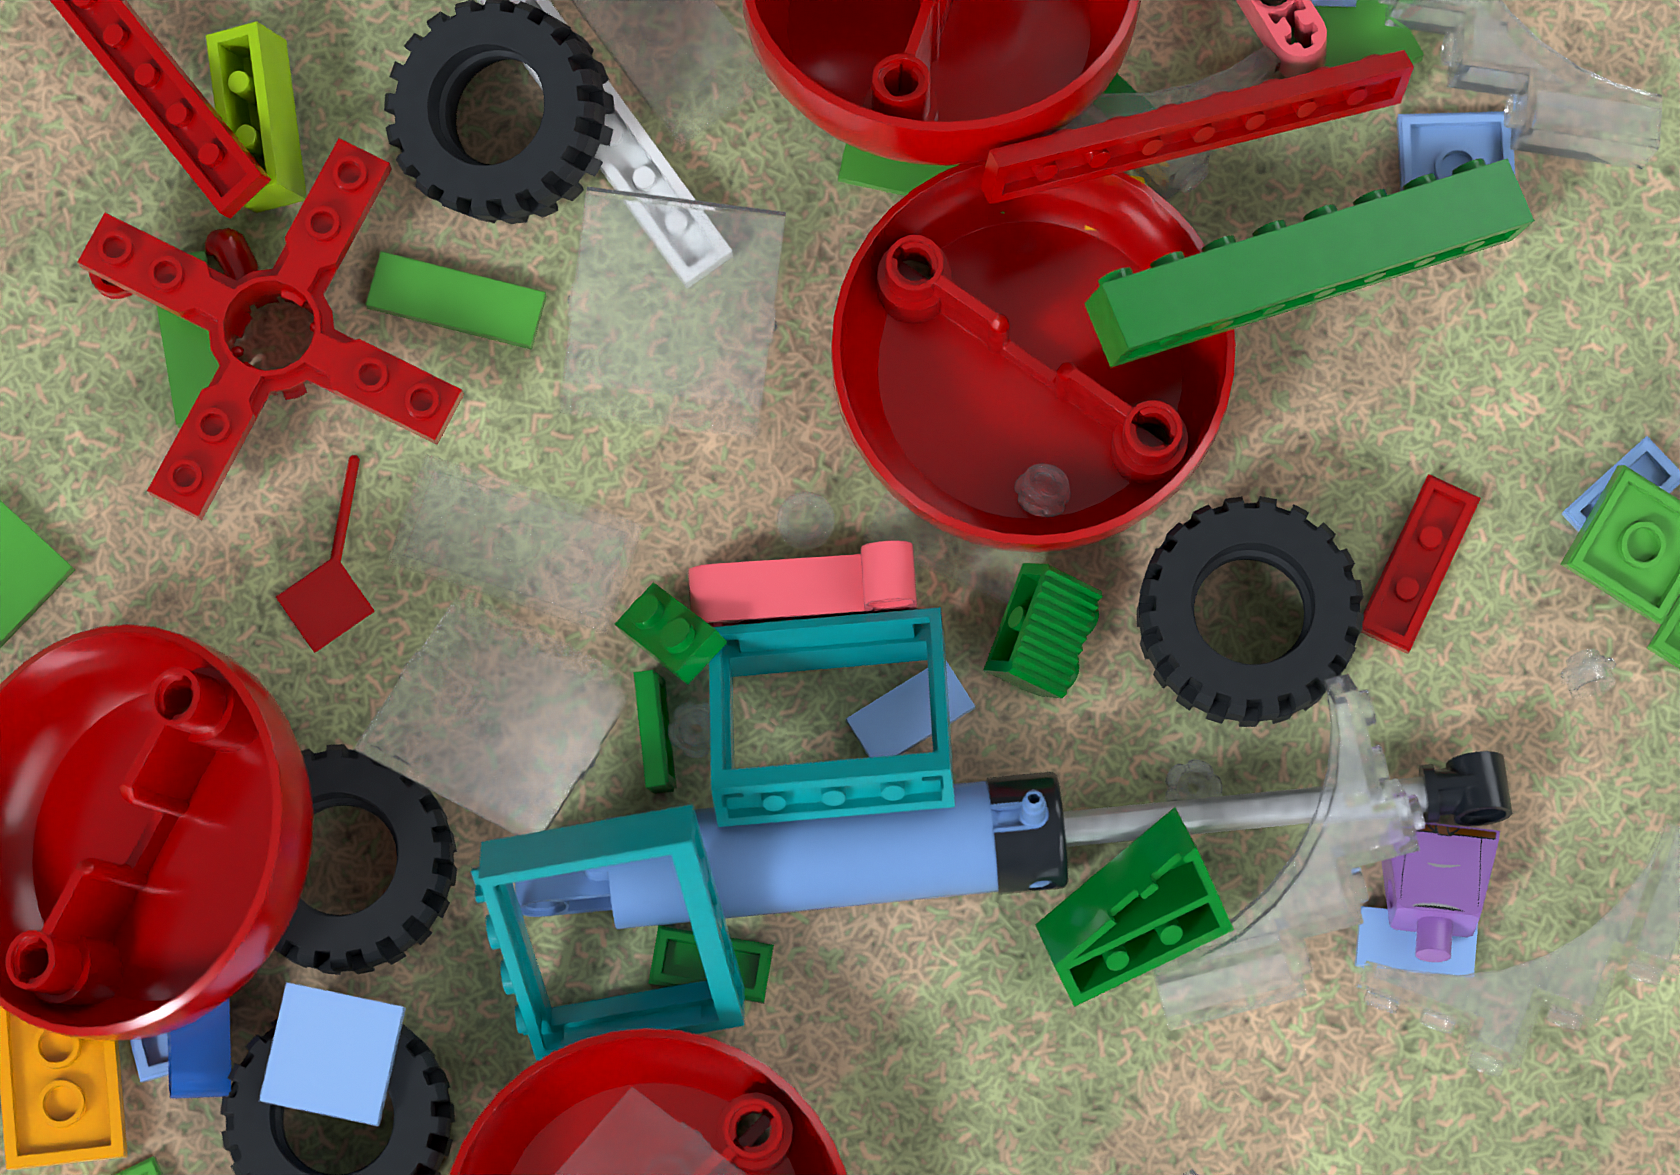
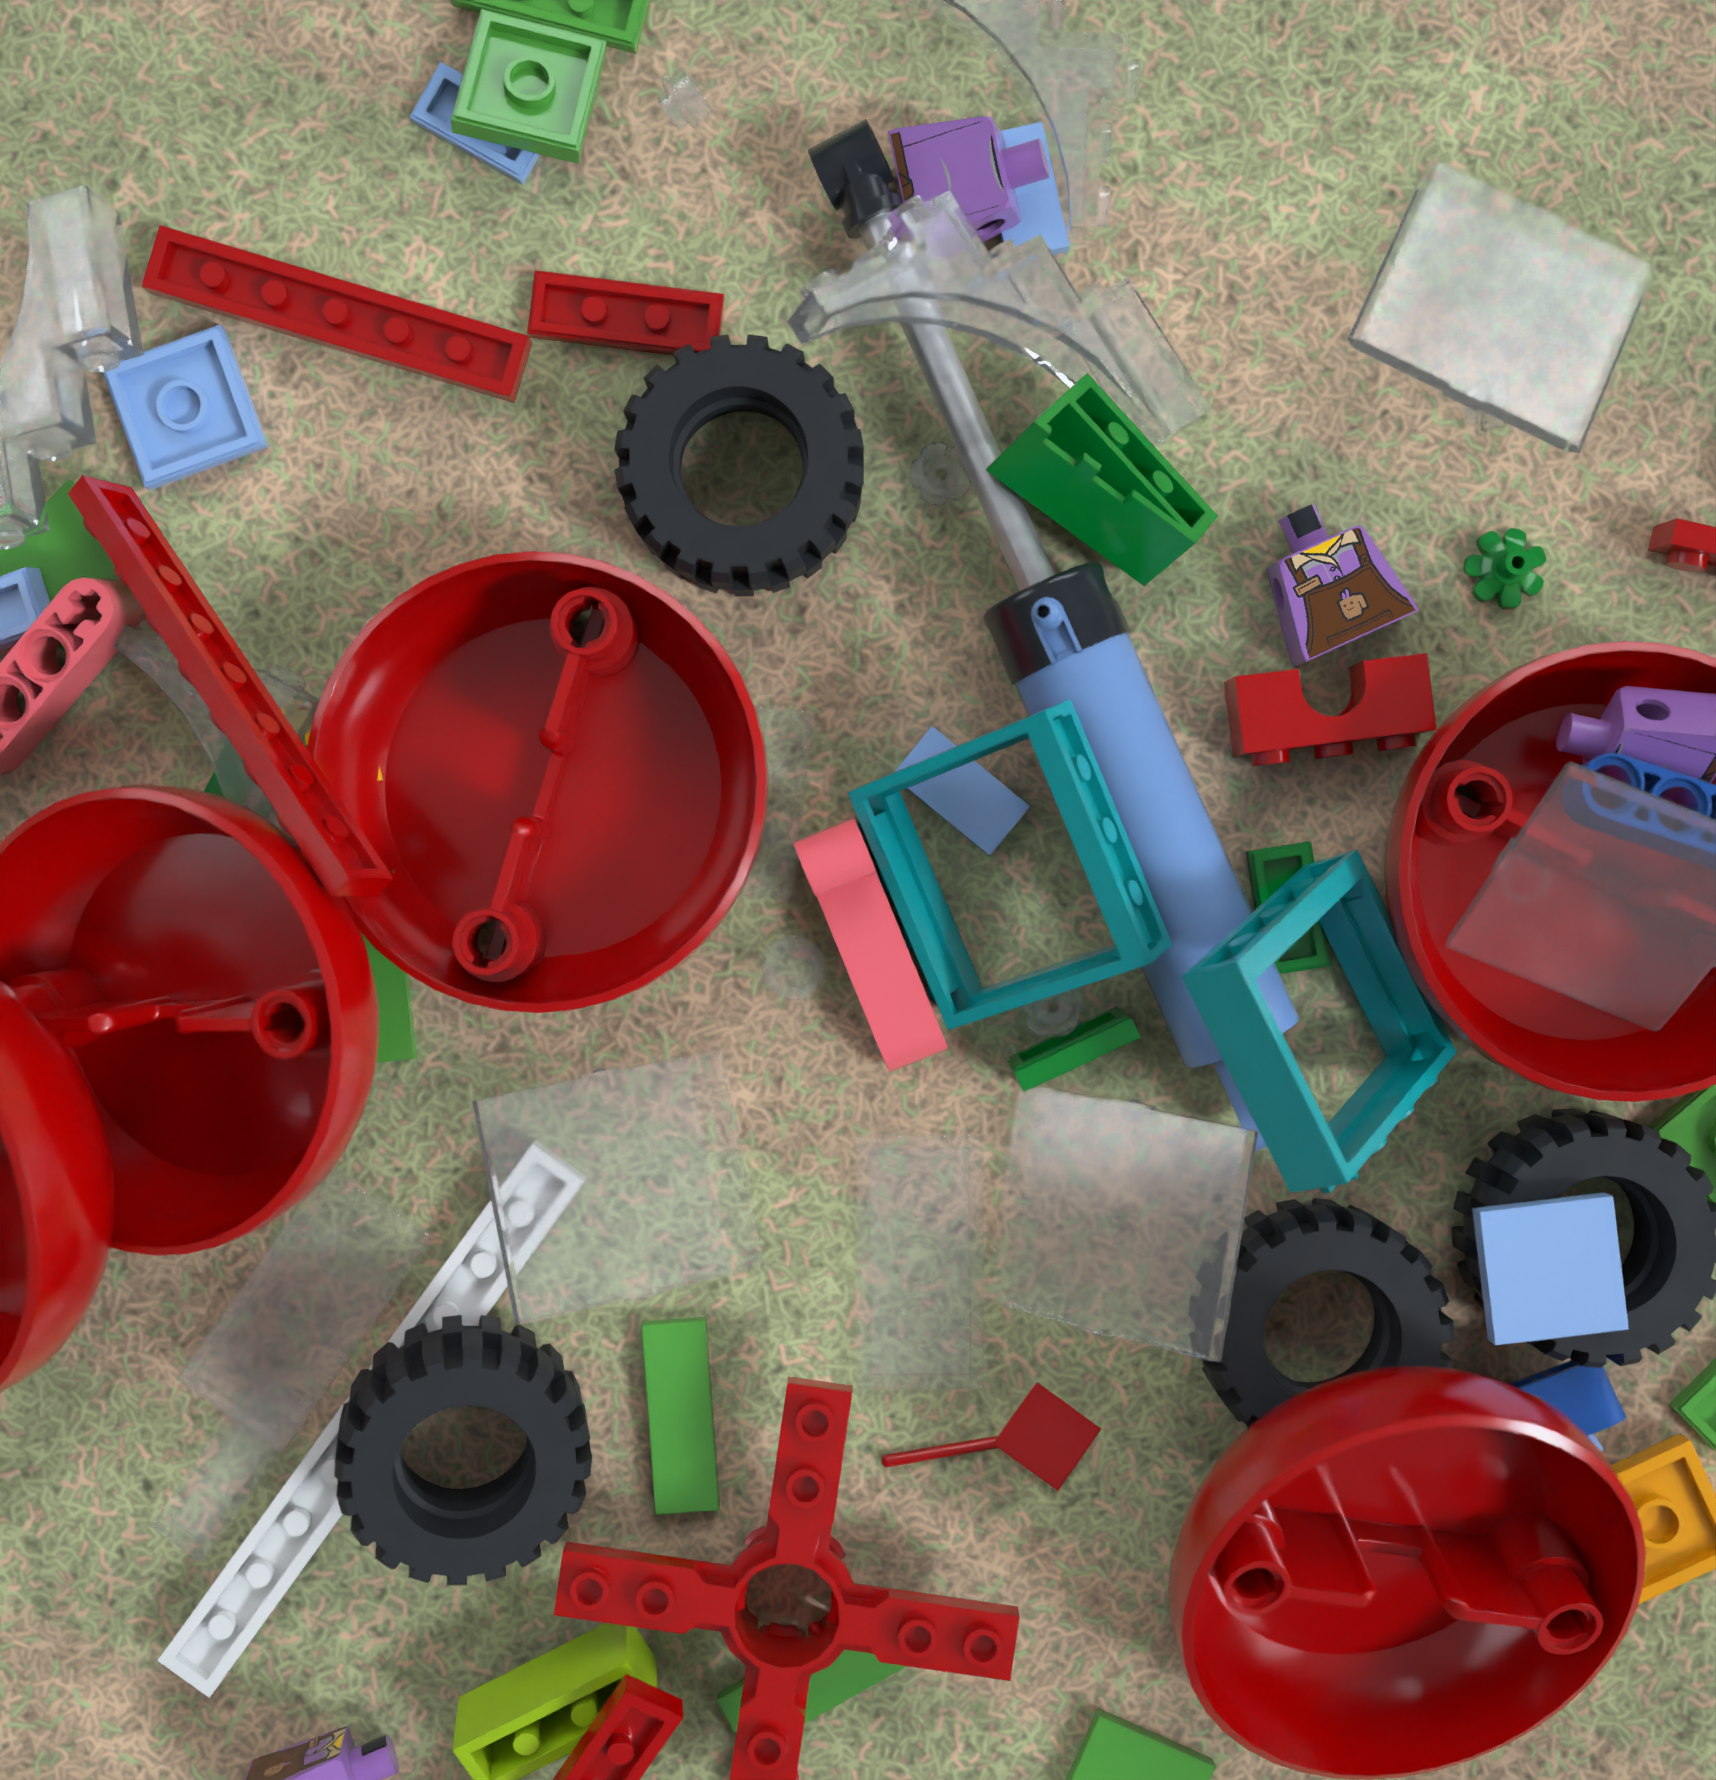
camera: 115 degrees left, 10 degrees up
(231, 252) = (710, 1670): red arm -> none
(670, 633) = (967, 1067): green plate -> none
(879, 1000) = (1387, 704): none -> red arch
(980, 1091) = (1332, 587): none -> torso
(1043, 490) = (670, 725): clear plate -> none
(1044, 631) = (831, 678): green brick -> none
(1306, 261) = (343, 516): green brick -> none
(1493, 321) = (337, 314): none -> red plate

